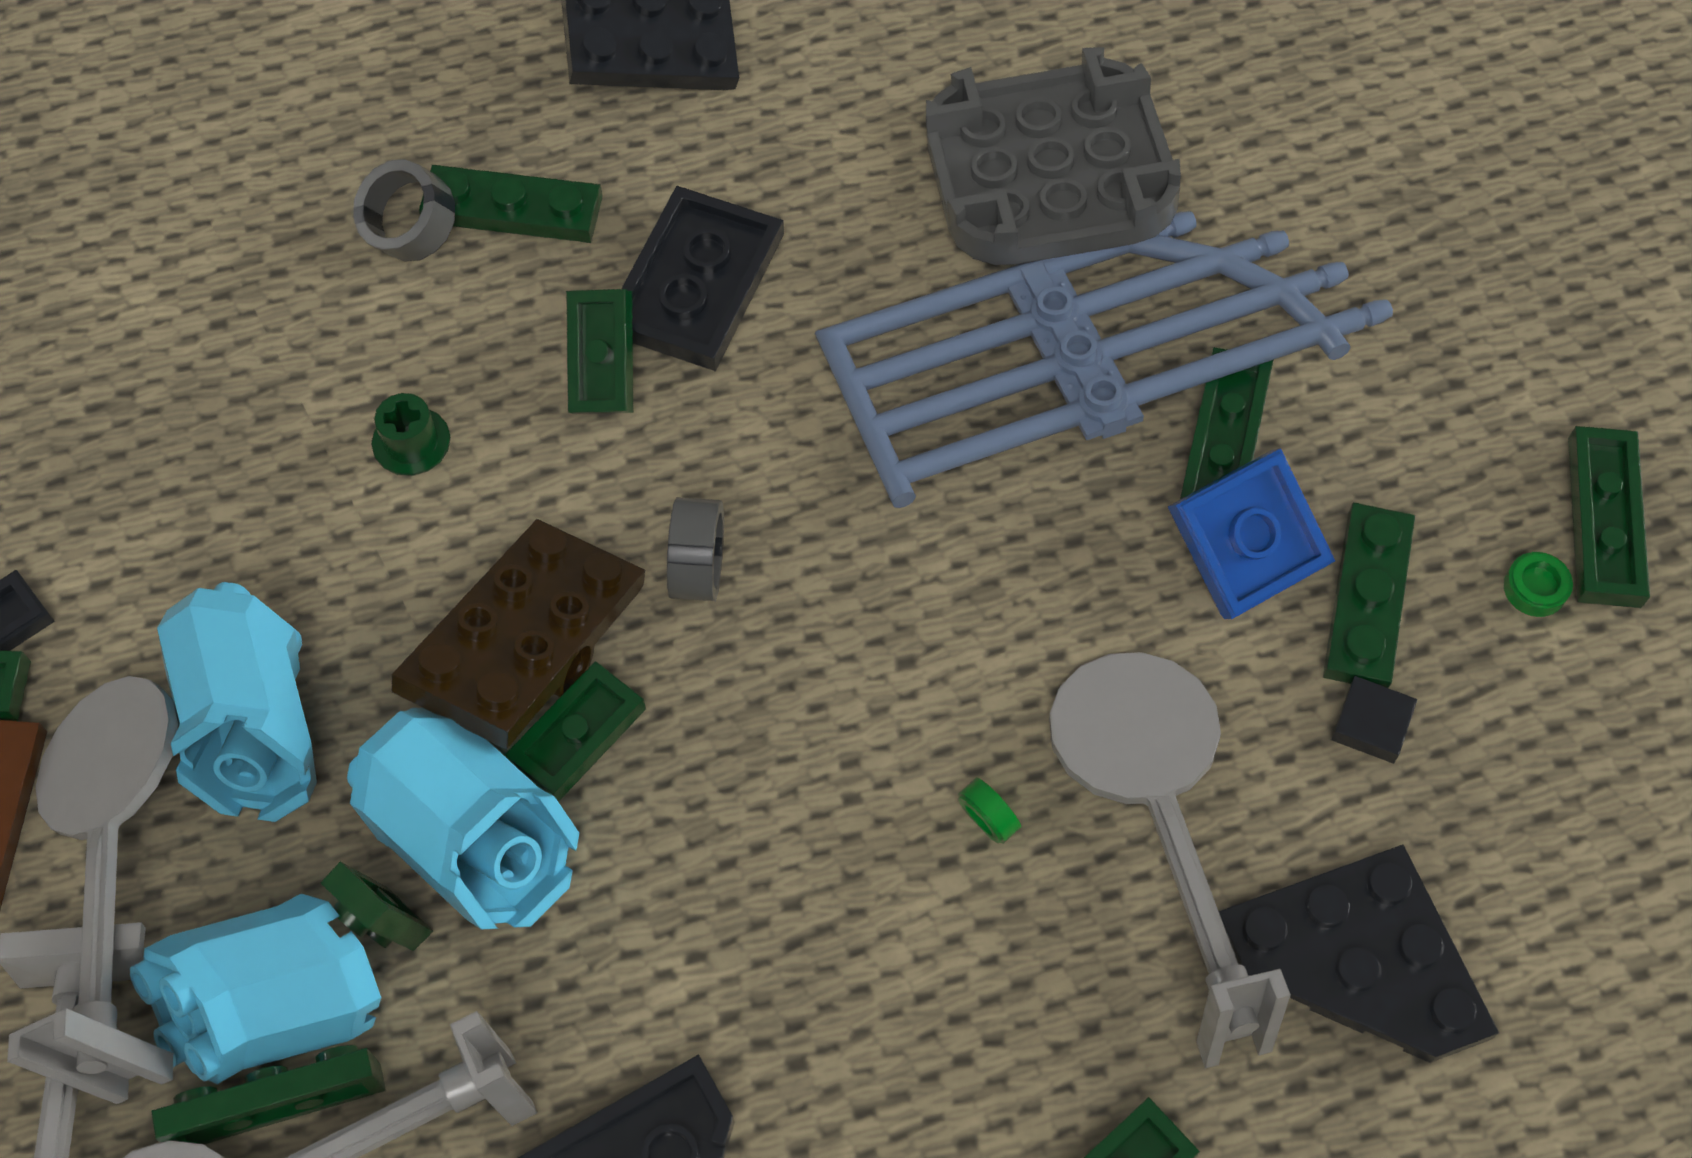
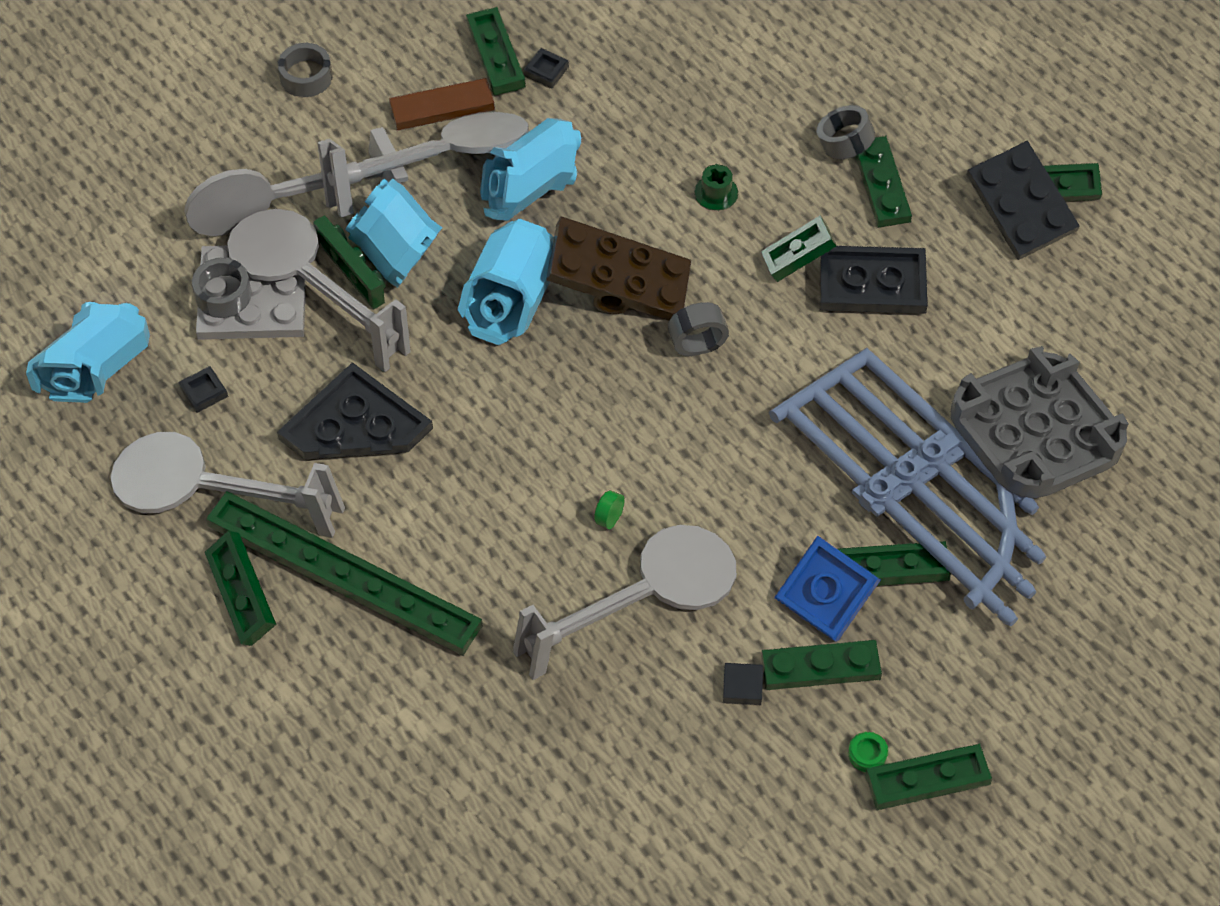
camera: 70 degrees right, 5 degrees down
(374, 909) = (449, 262): dark green plate -> none
(576, 731) = (579, 317): dark green plate -> none
(1366, 955) = (601, 708): black plate -> none

